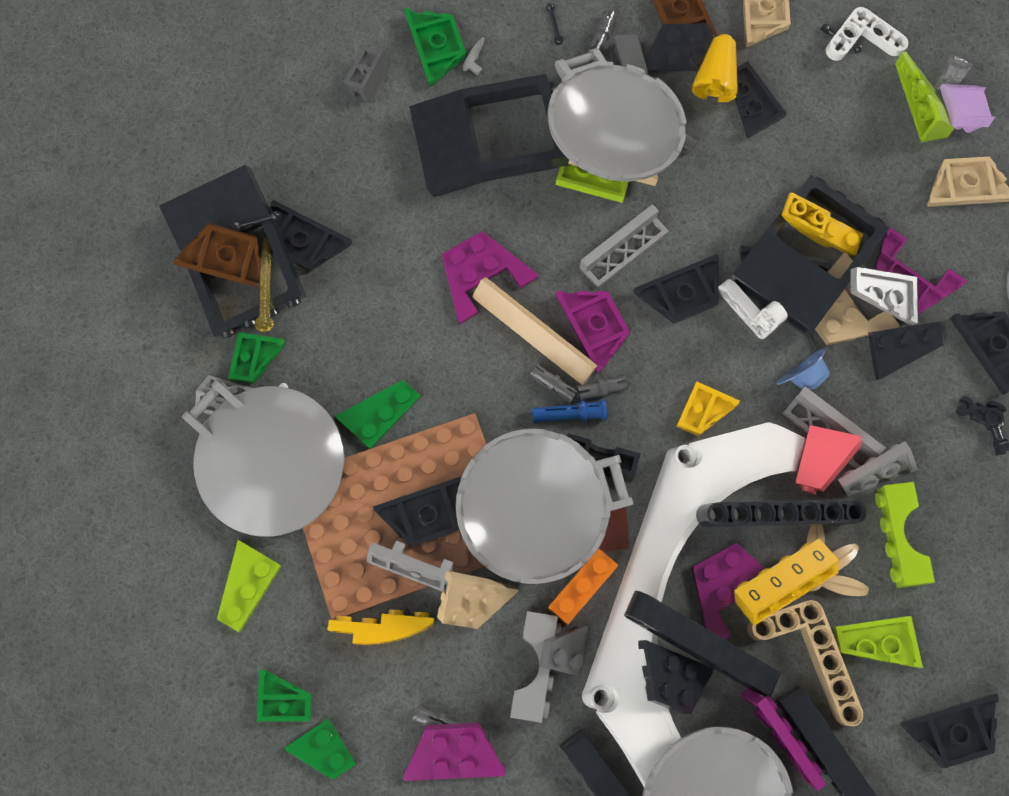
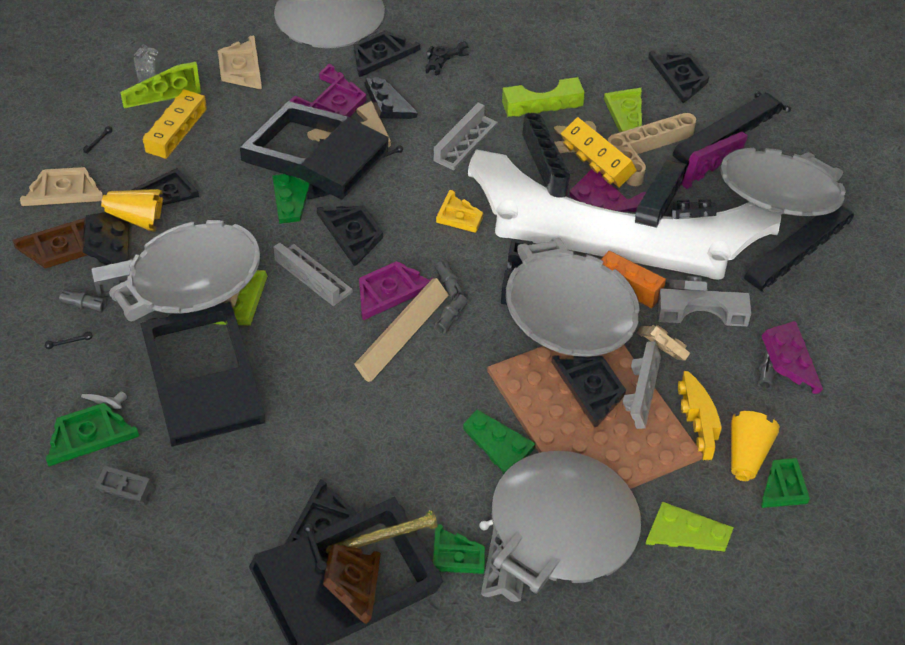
camera: 95 degrees left, 25 degrees down
(323, 750) = (816, 451): green wing -> none
(330, 672) = (750, 443): none -> yellow cone
(475, 260) = (338, 383): magenta wing -> none
(582, 412) = (474, 292): blue pin -> none
(738, 228) = (290, 197): none -> green wing
(760, 322) = (378, 180): white beam -> none
(809, 373) = (418, 150): medium blue piece -> none
(819, 226) = (289, 139): yellow slope -> none
(825, 457) = (492, 135): coral slope -> none
(860, 28) = (86, 124): white beam -> none
(860, 111) = (174, 124): none -> yellow brick
(888, 292) = (348, 98): wing -> none
(888, 465) = (494, 108): light grey wing -> none
(966, 106) = (171, 57): lavender slope -> none

